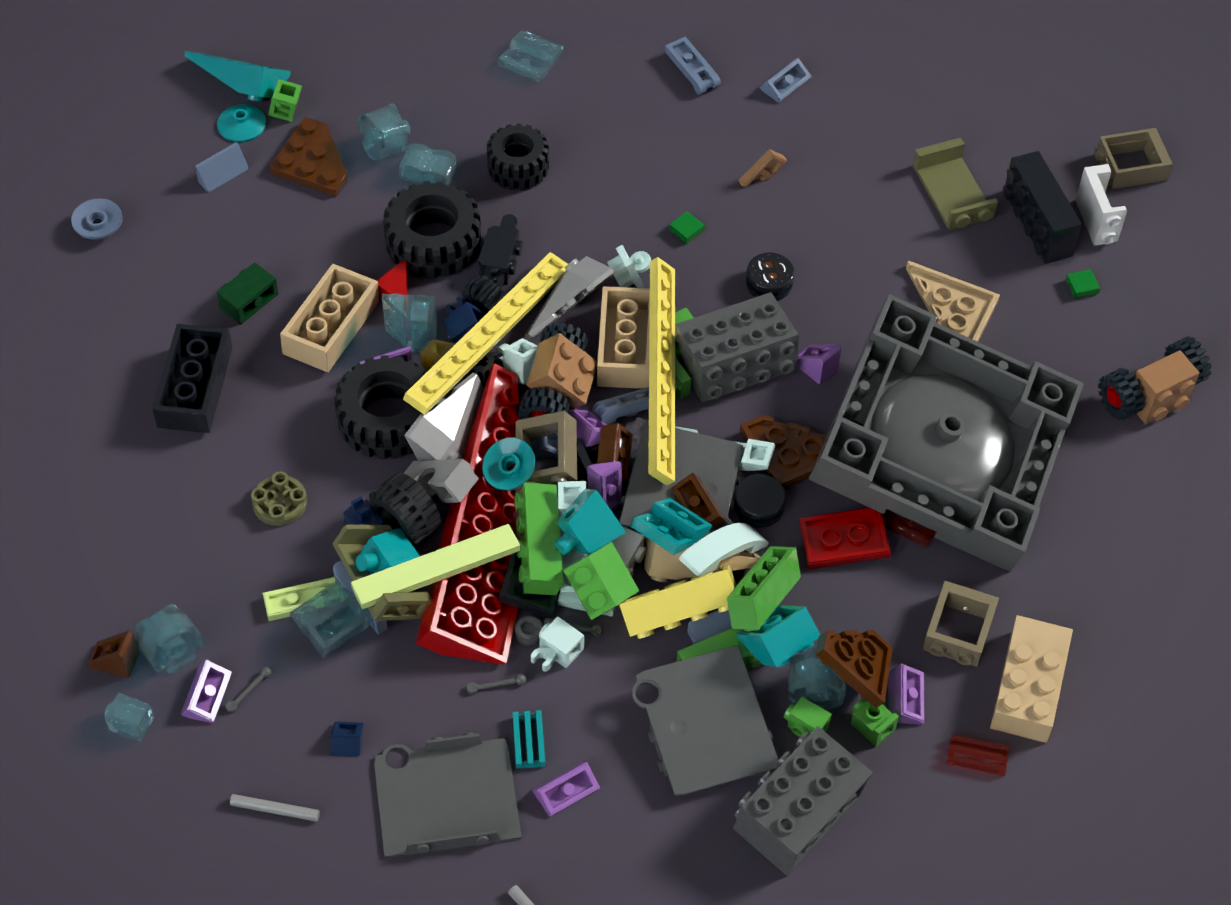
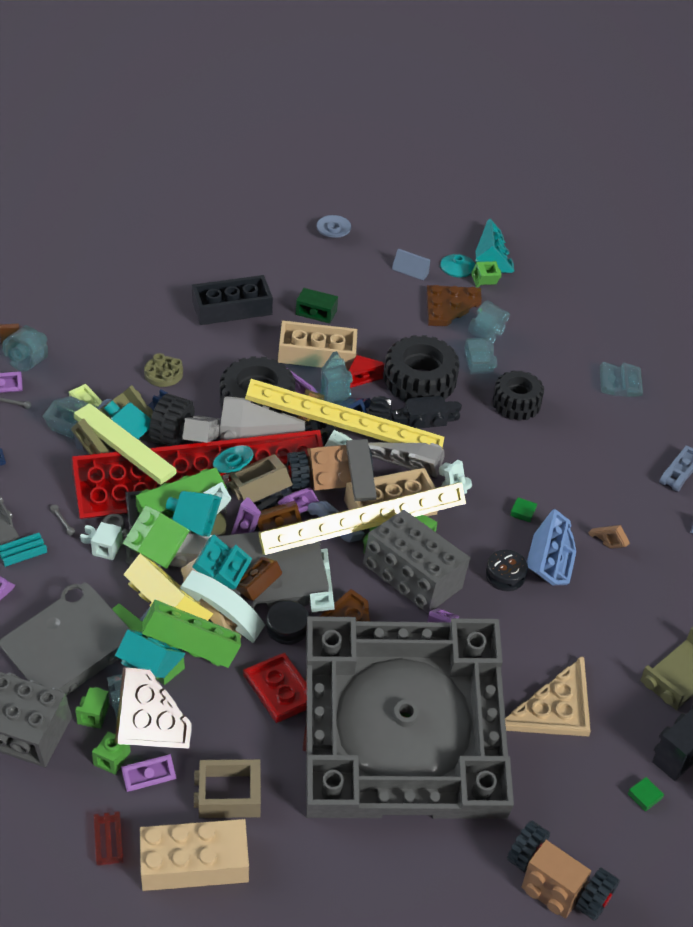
camera: 65 degrees right, 10 degrees down
(599, 341) = (361, 470): none -> dark grey tile
(763, 227) = (553, 550): none -> medium blue wedge

